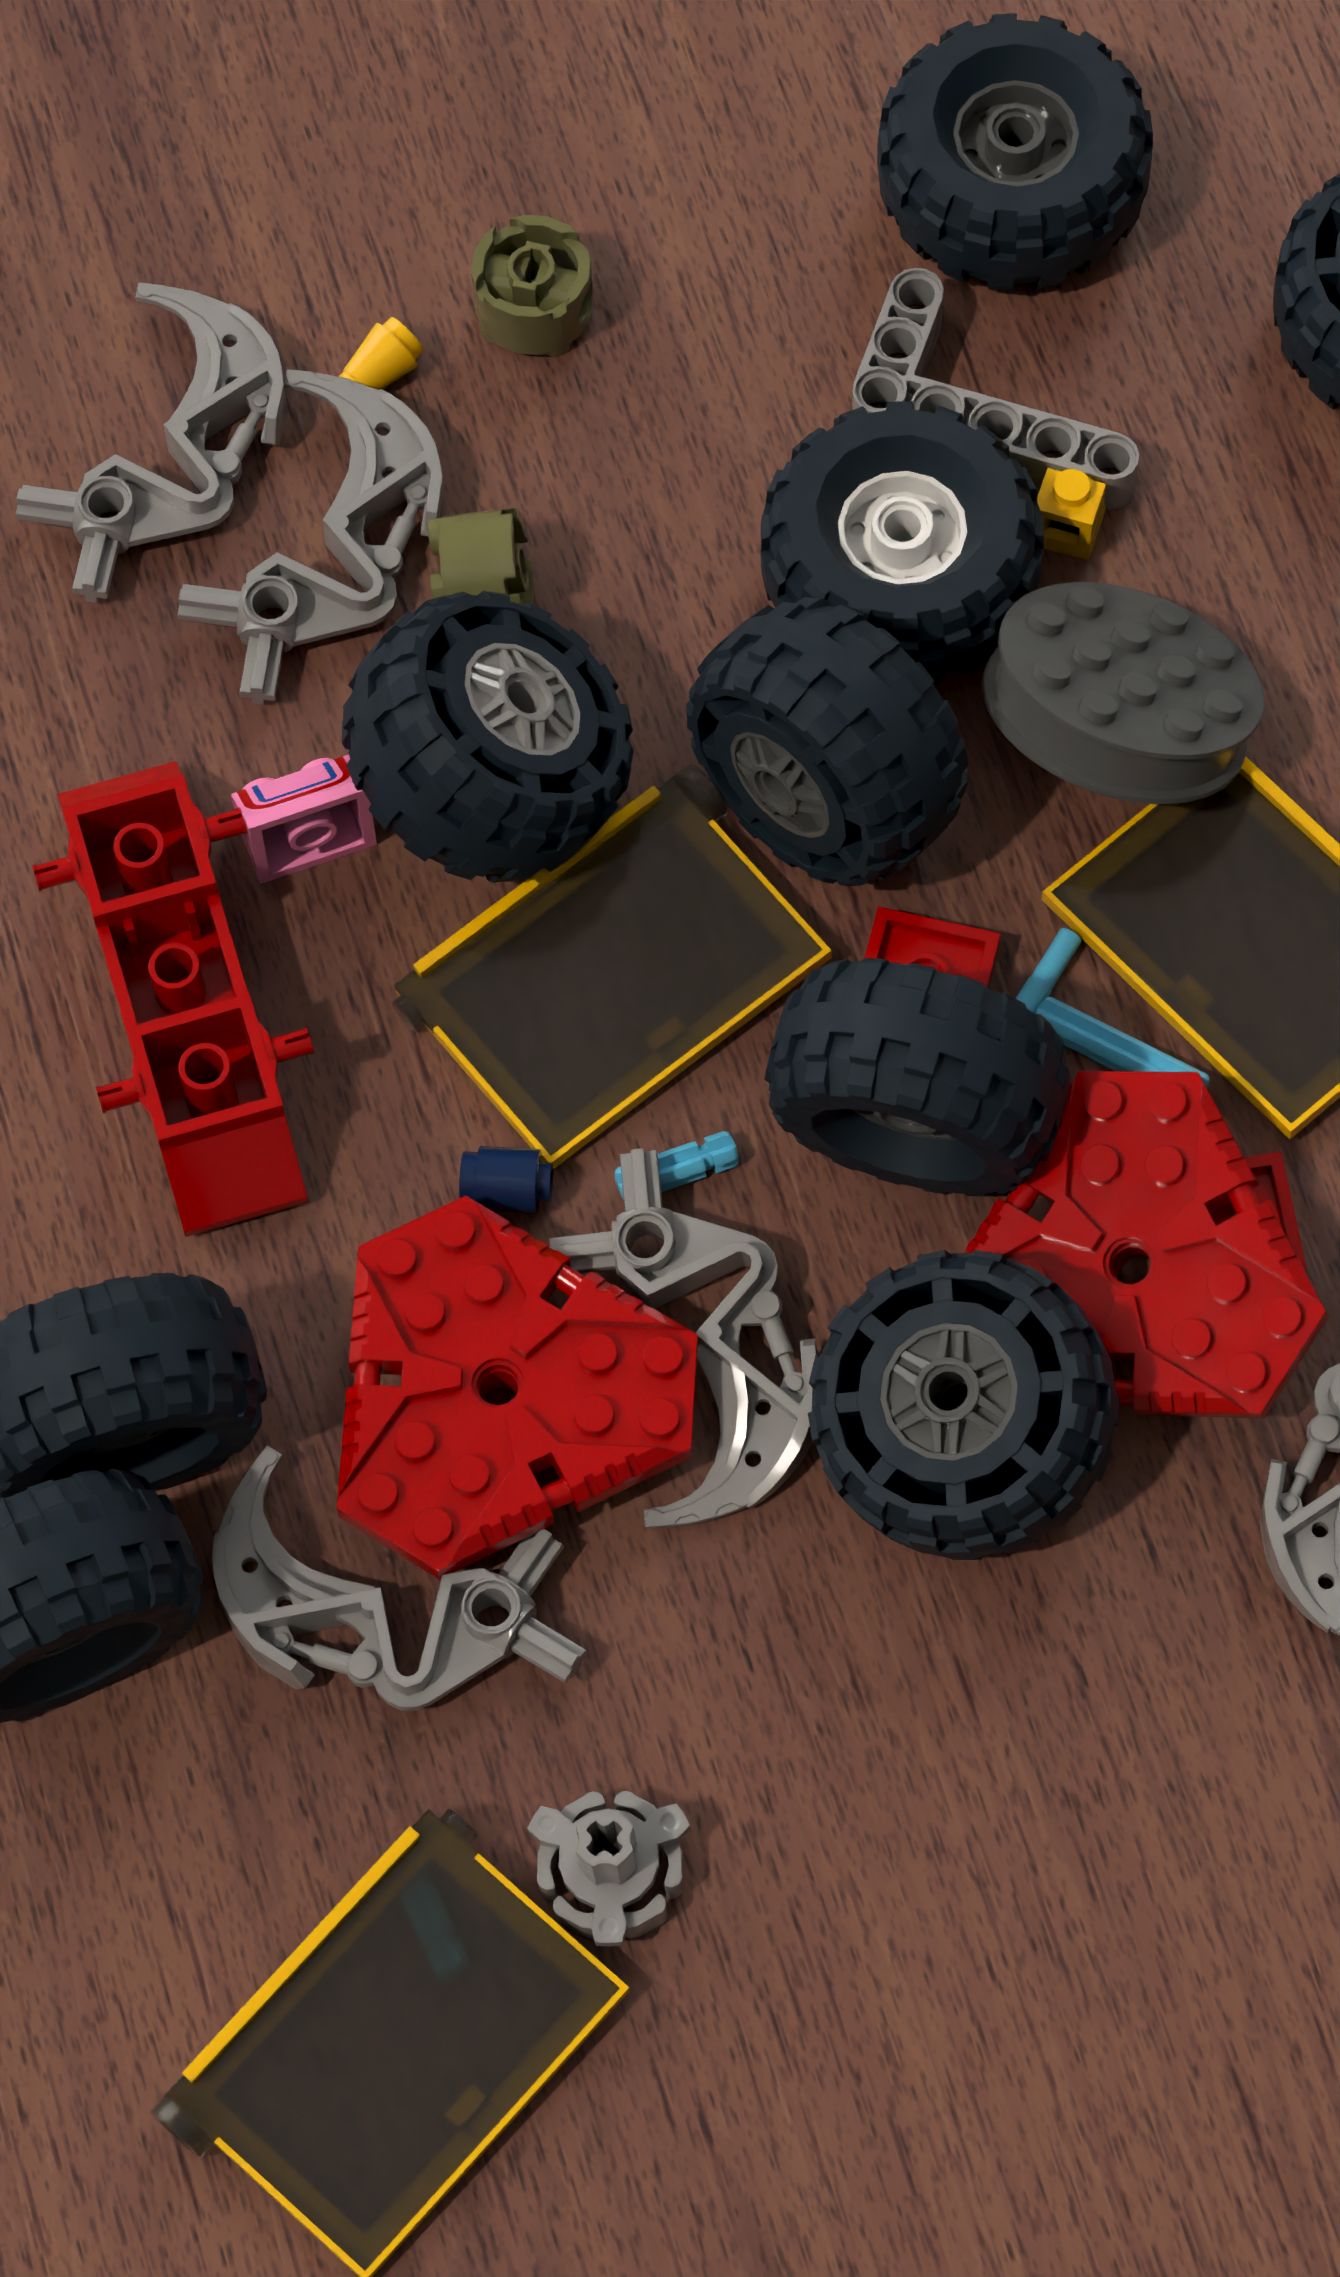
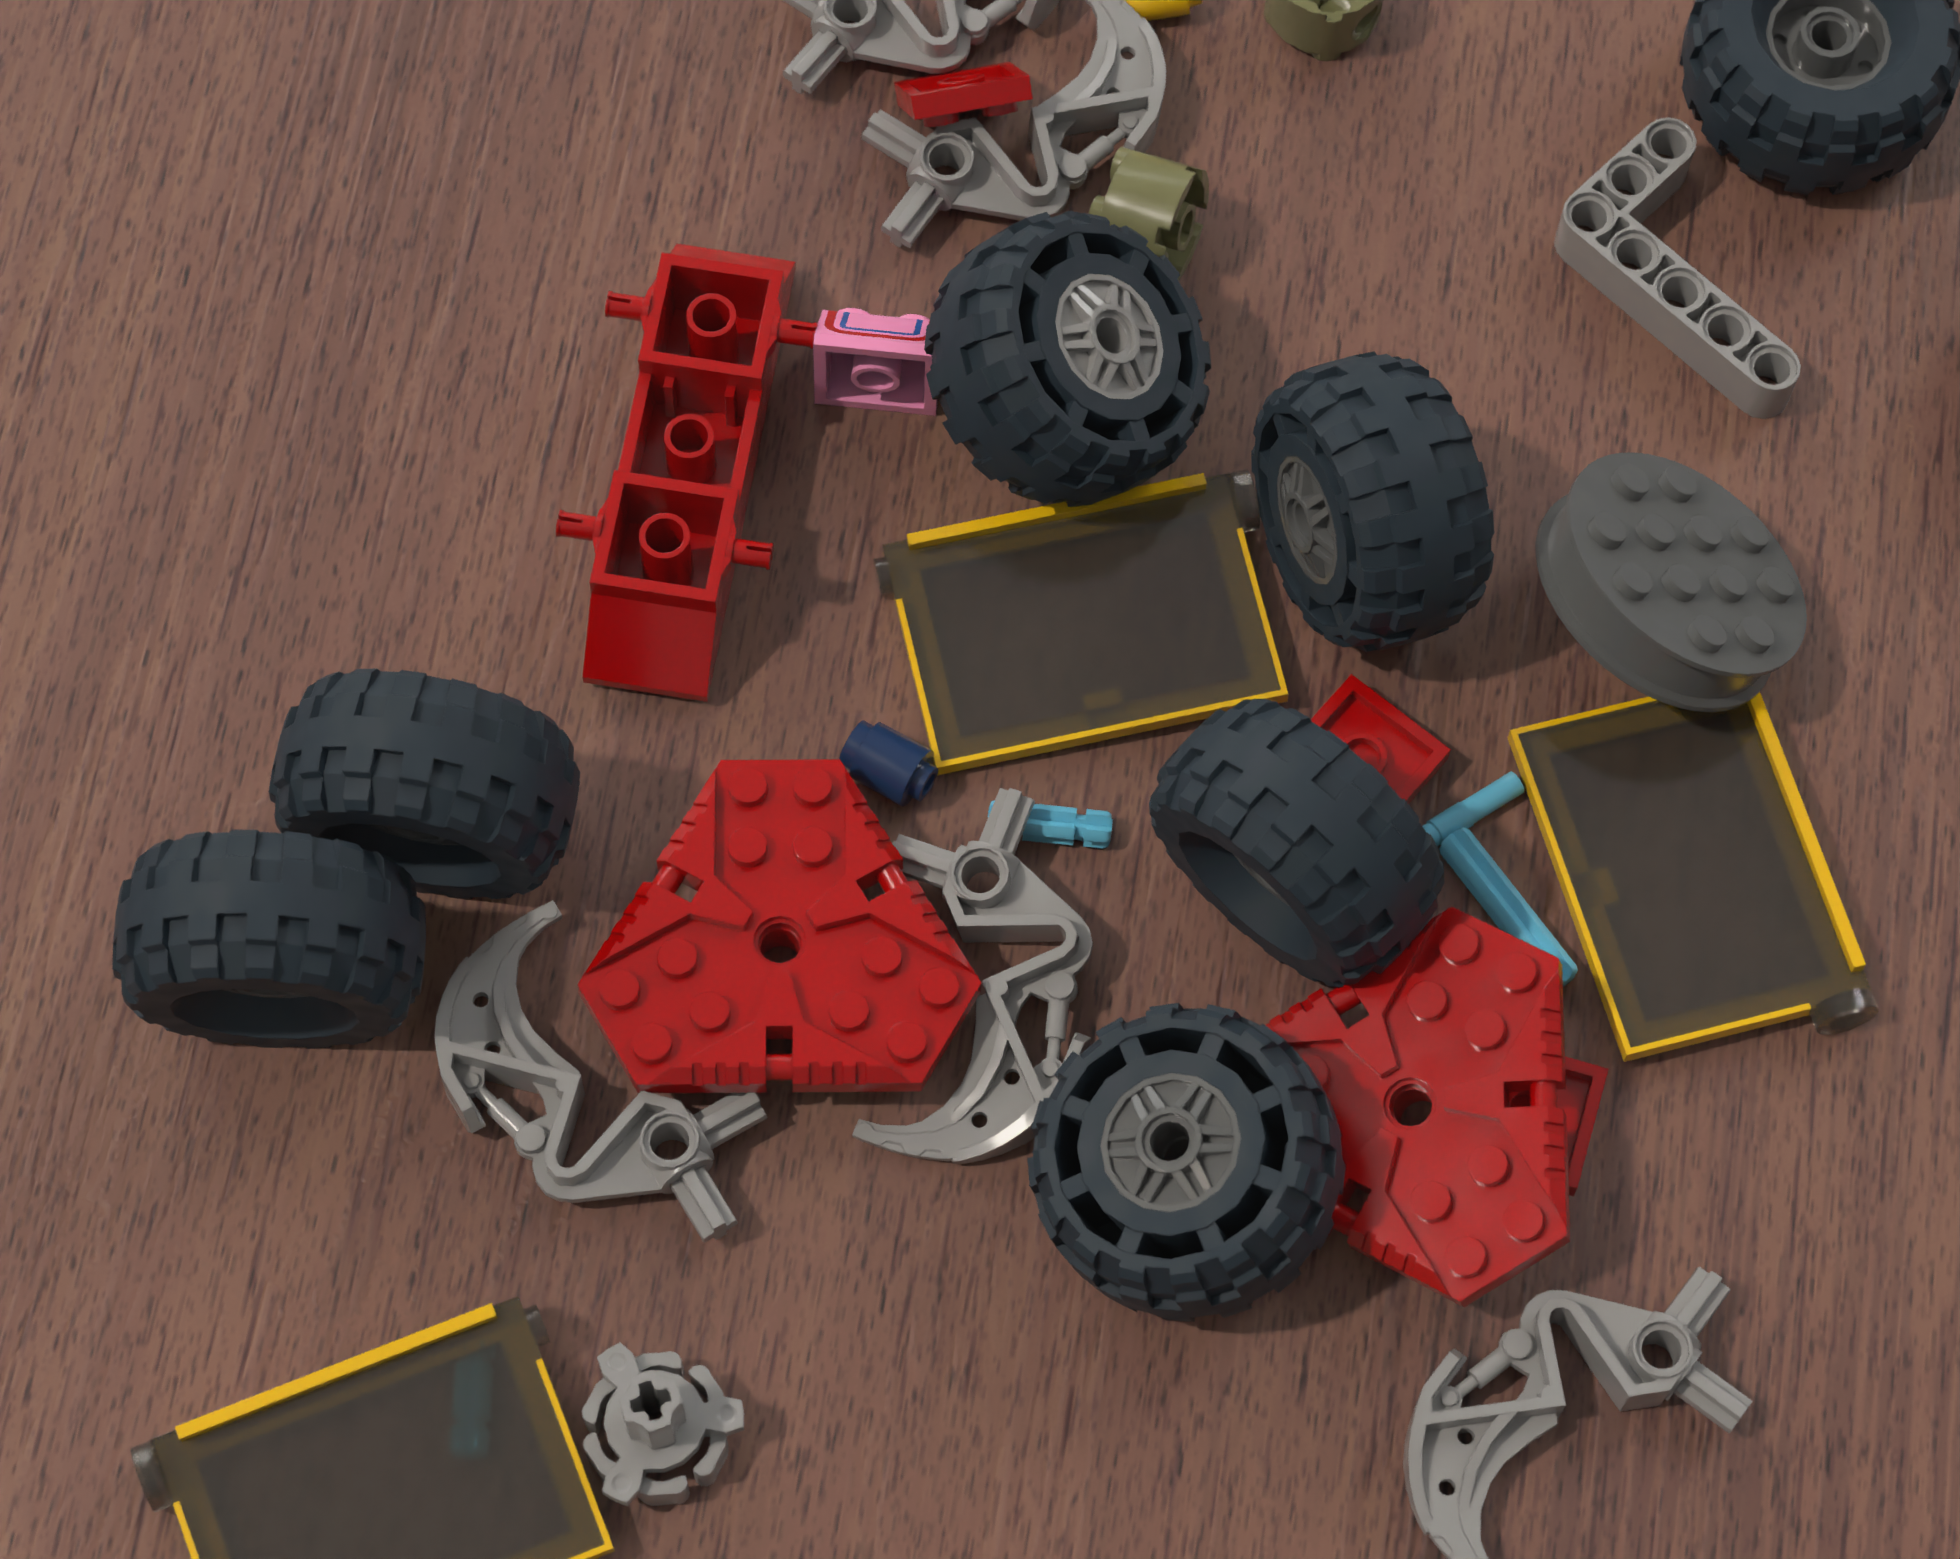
camera: 20 degrees right, 0 degrees up
(238, 543) = (943, 95): none -> red plate
(908, 527) = (1546, 349): black wheel -> none
(1076, 501) = (1717, 390): yellow brick -> none

